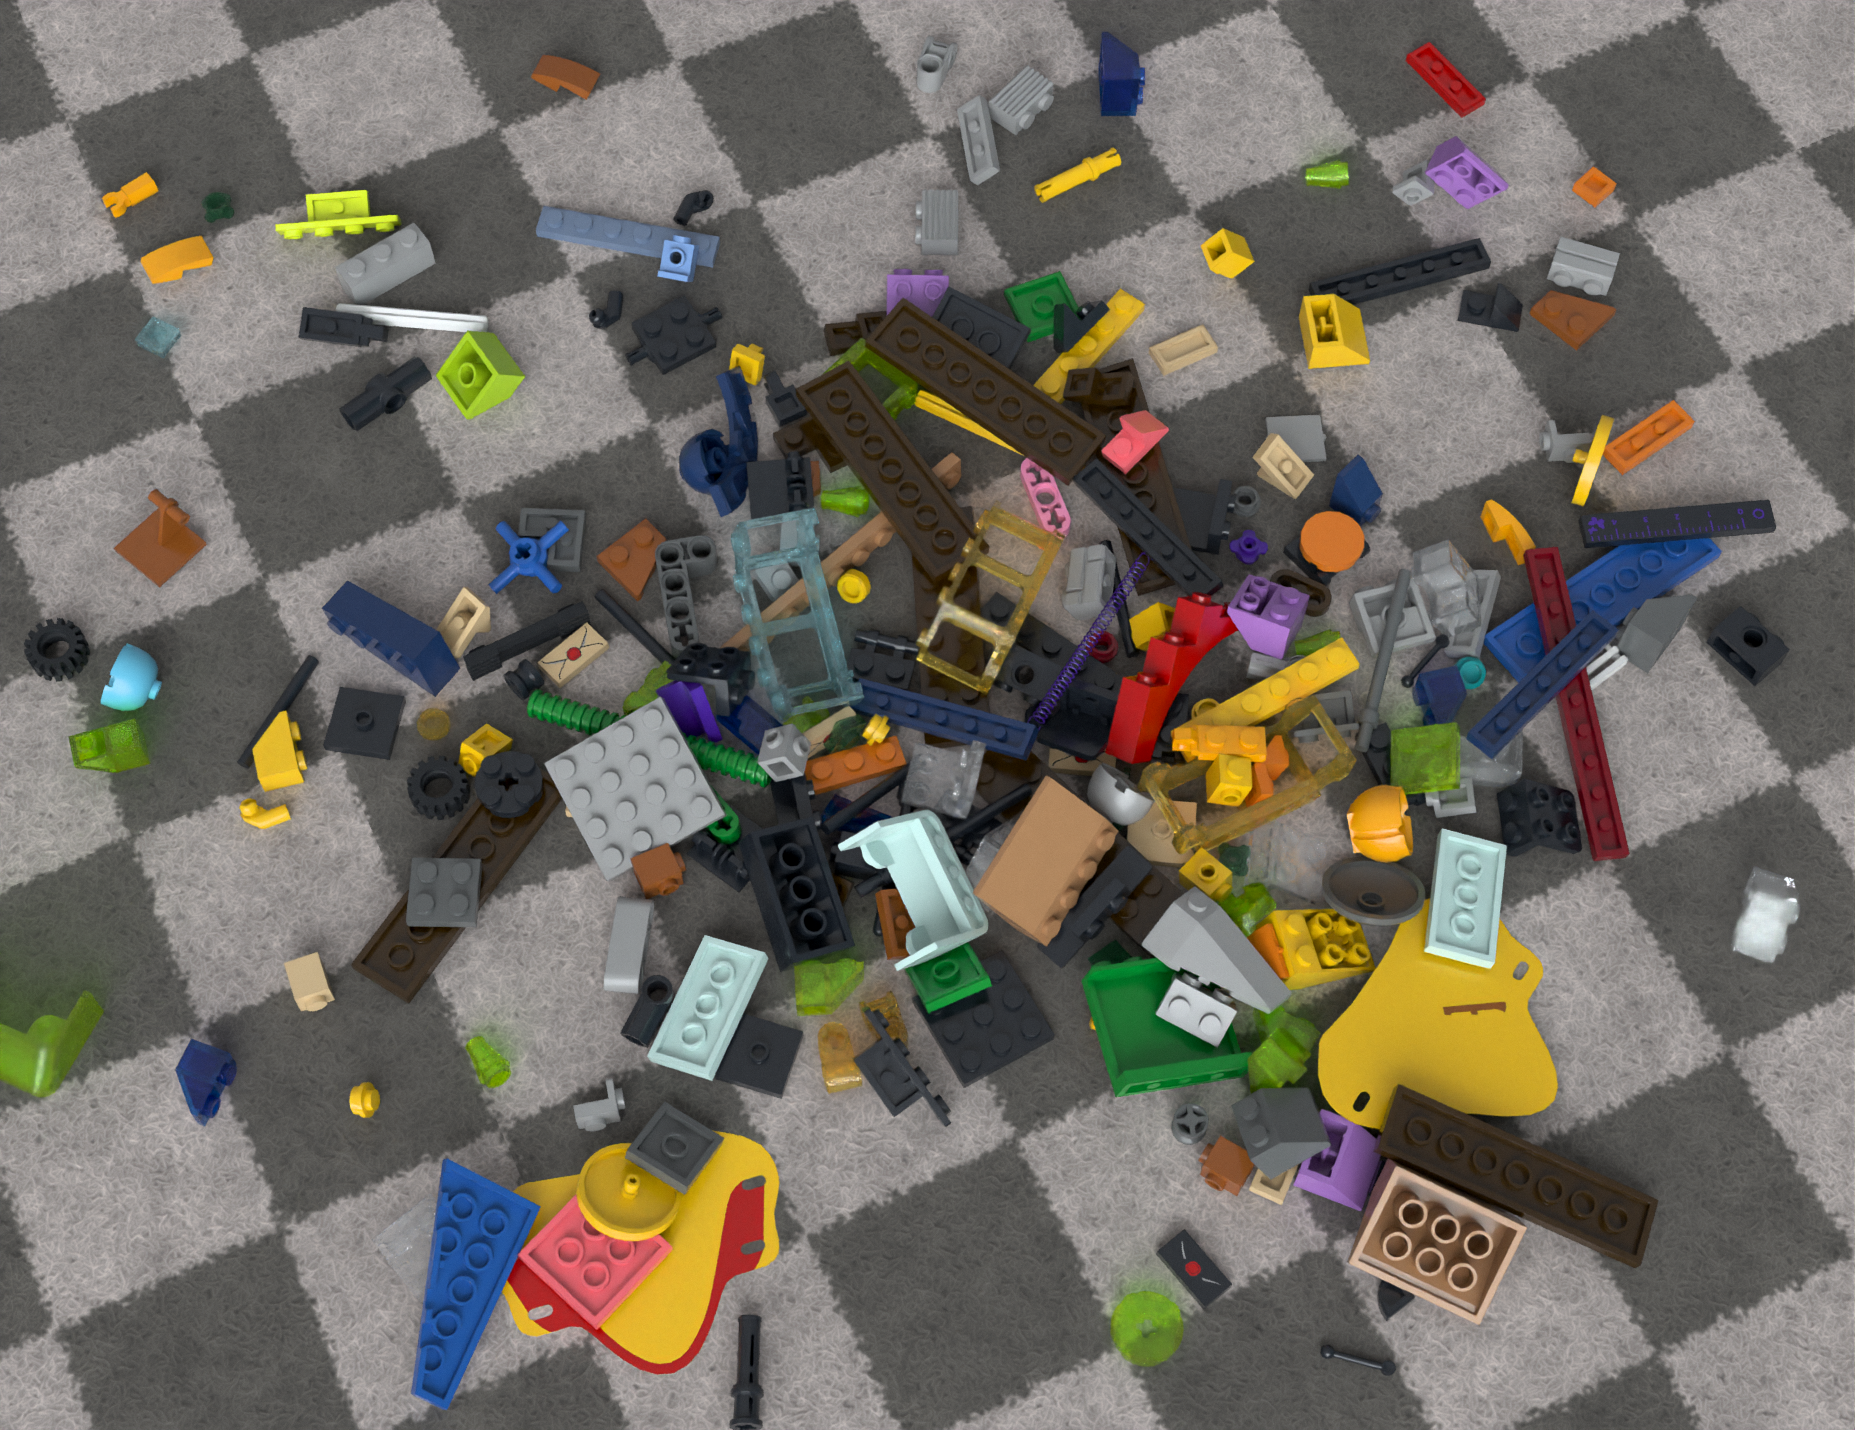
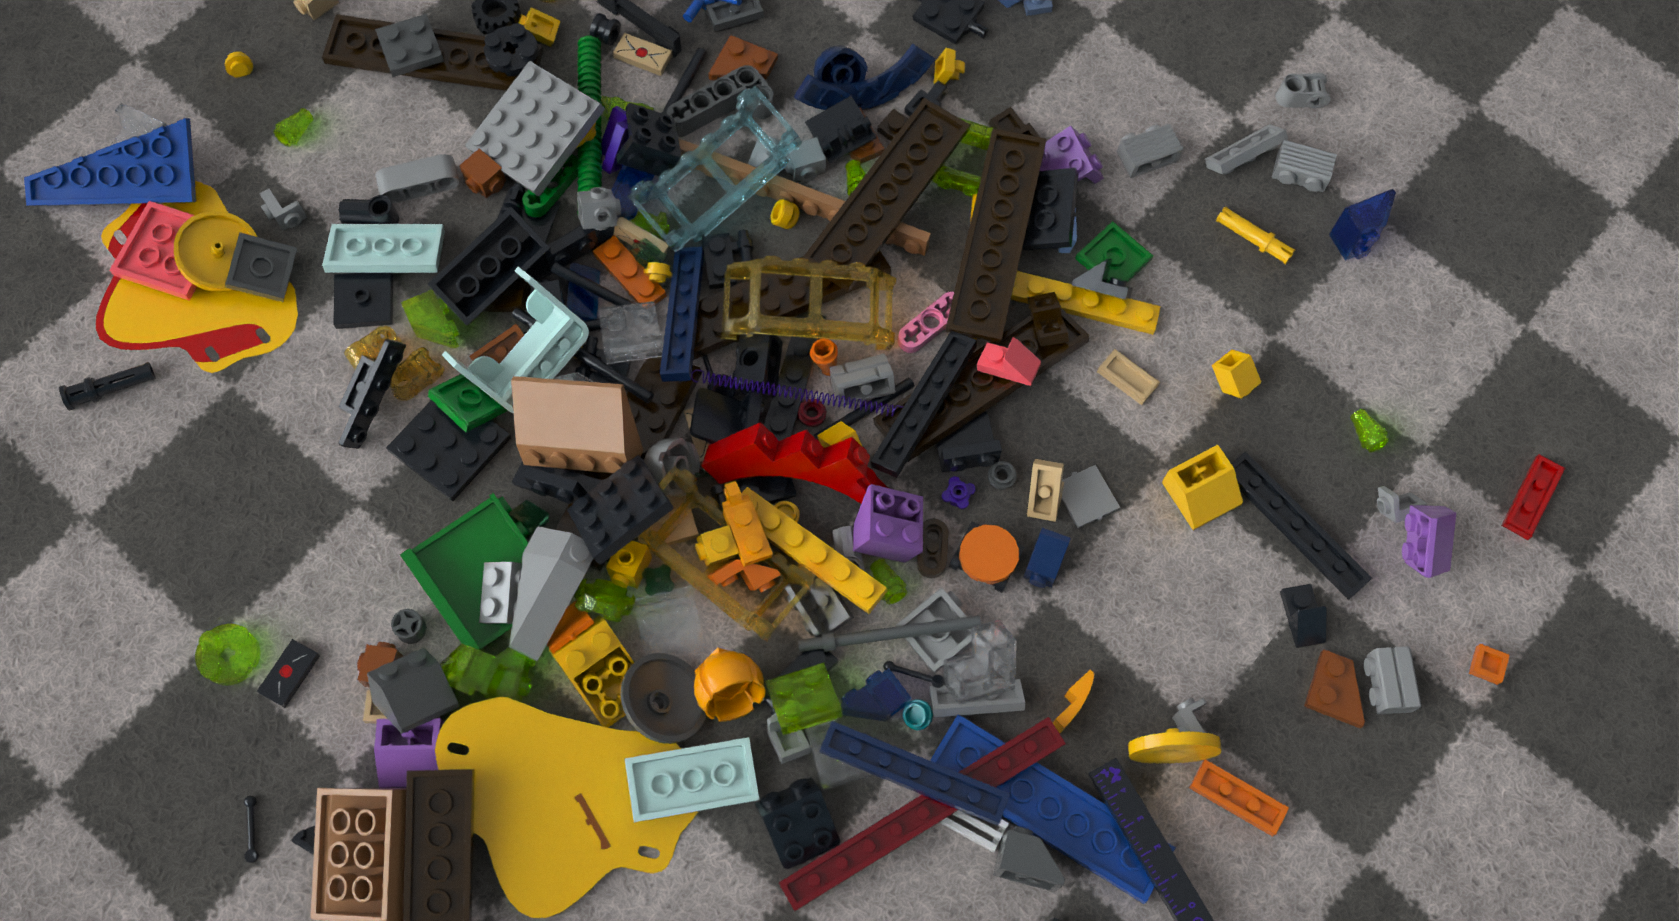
camera: 65 degrees right, 5 degrees up
(1050, 603) = (824, 354): none -> orange cone
(1168, 843) = (619, 509): none -> black plate

